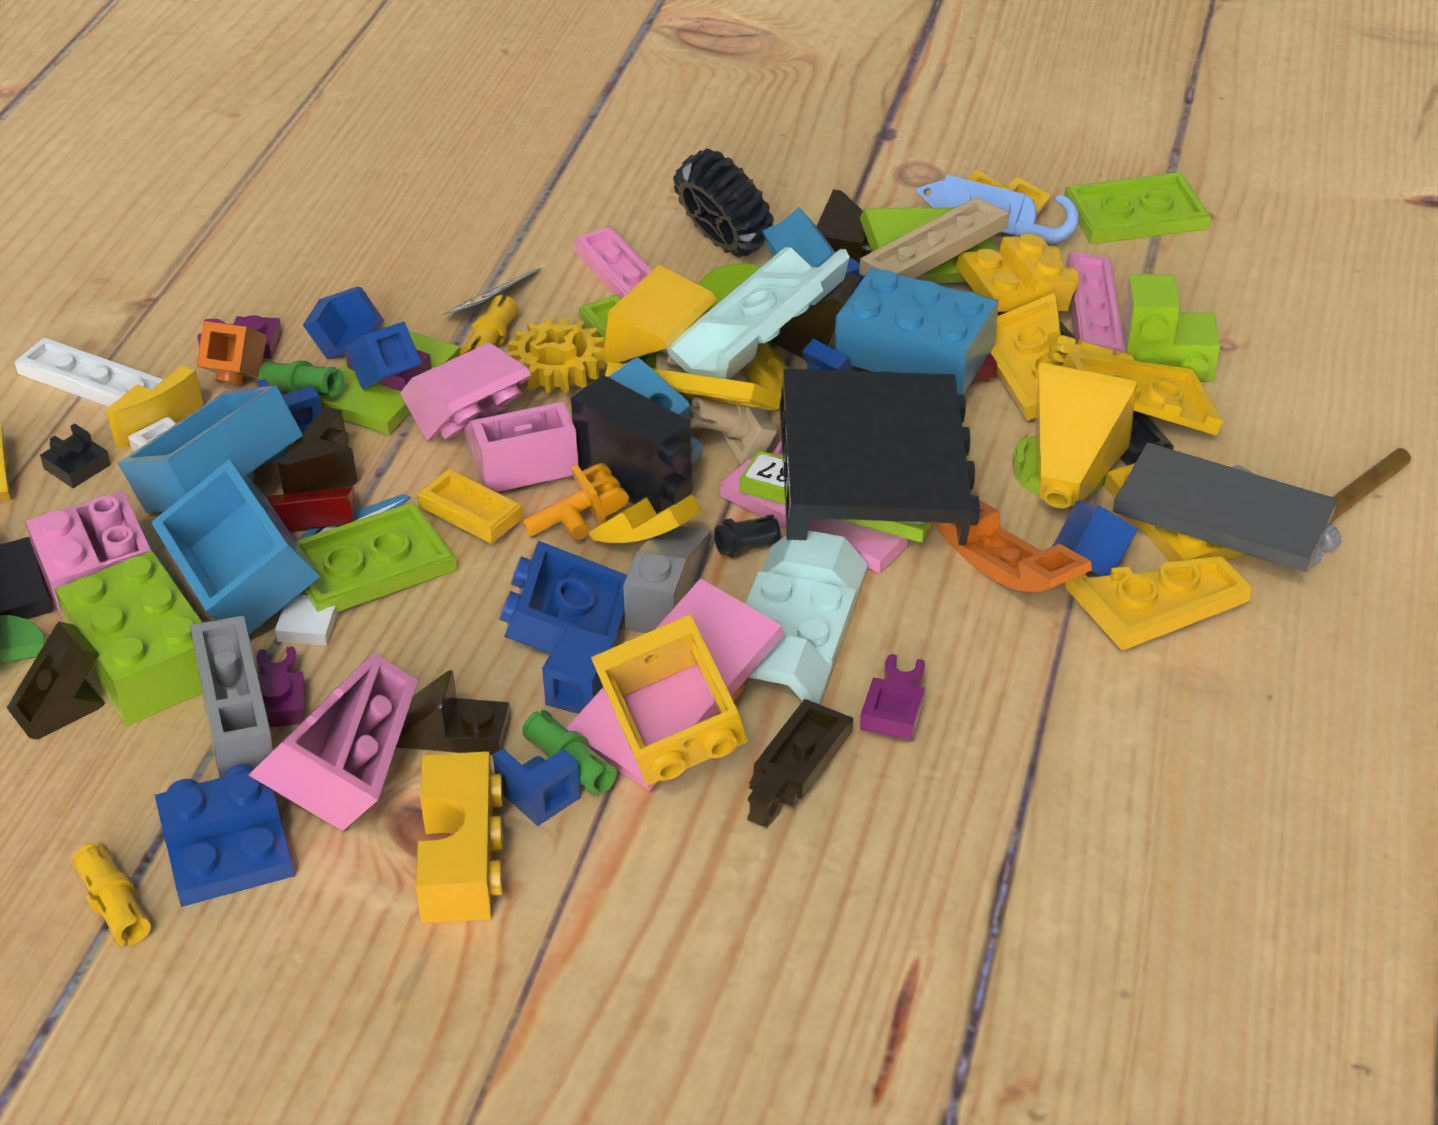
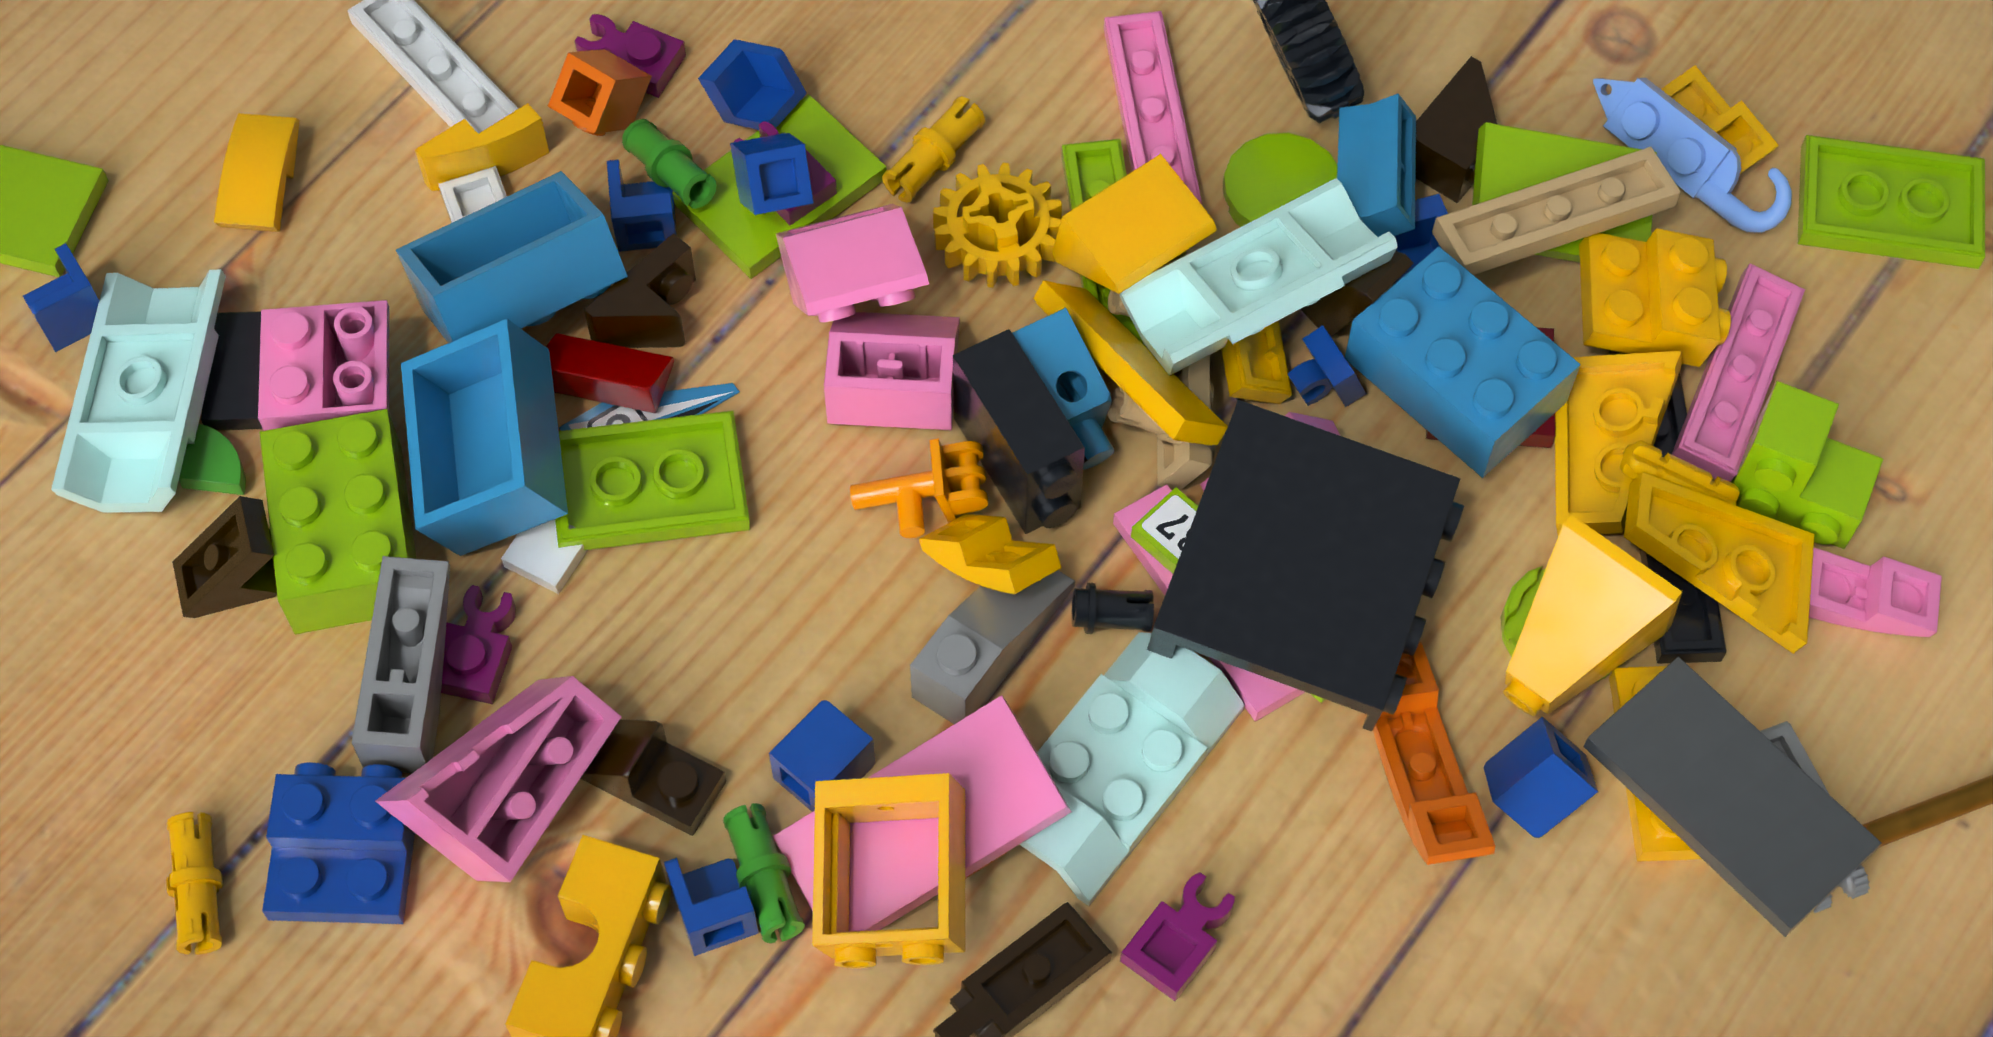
camera: 20 degrees right, 20 degrees up
(75, 457) = (368, 196): black tile -> none
(470, 506) = (797, 441): yellow plate -> none
(483, 297) = (948, 86): sticker -> none
(561, 593) = (845, 645): blue plate -> none
(1156, 602) = (1577, 901): yellow wing -> none
(1252, 395) = (1874, 598): none -> bright pink slope

